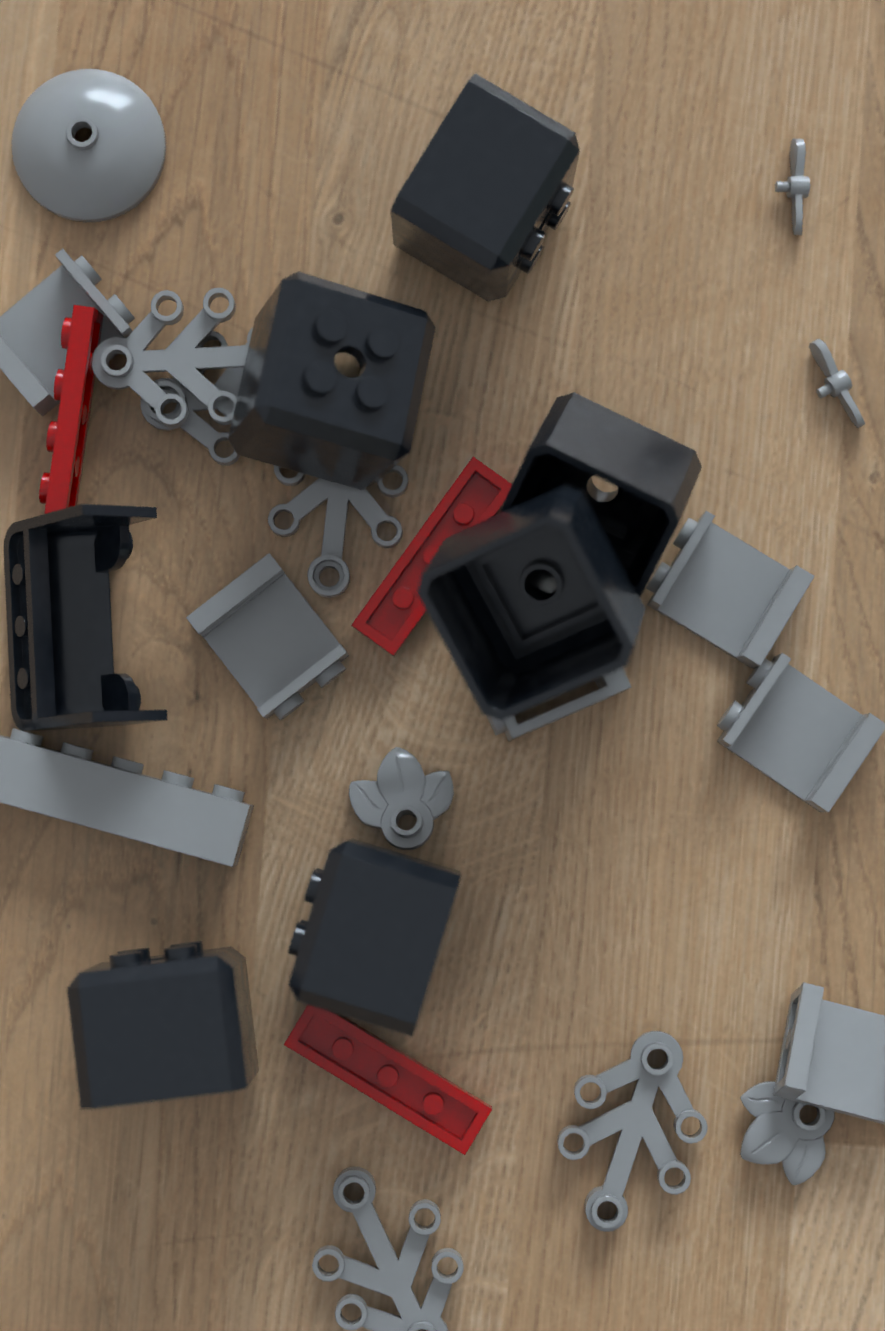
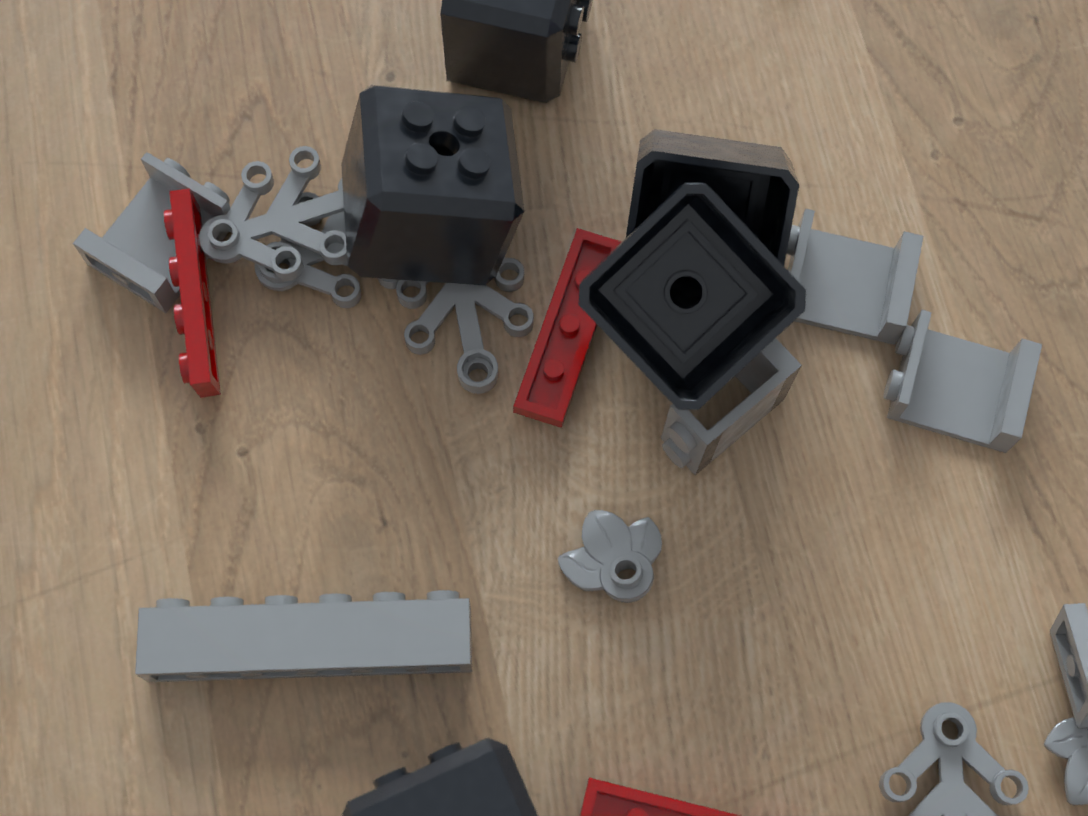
camera: 20 degrees left, 15 degrees down
(63, 619) = (230, 476): black windscreen -> none
(95, 176) = (151, 96): light grey dish -> none
(269, 638) = (437, 444): light grey panel -> none
(372, 934) = (637, 676): black plate -> none
(837, 381) = (872, 85): light grey piece -> none

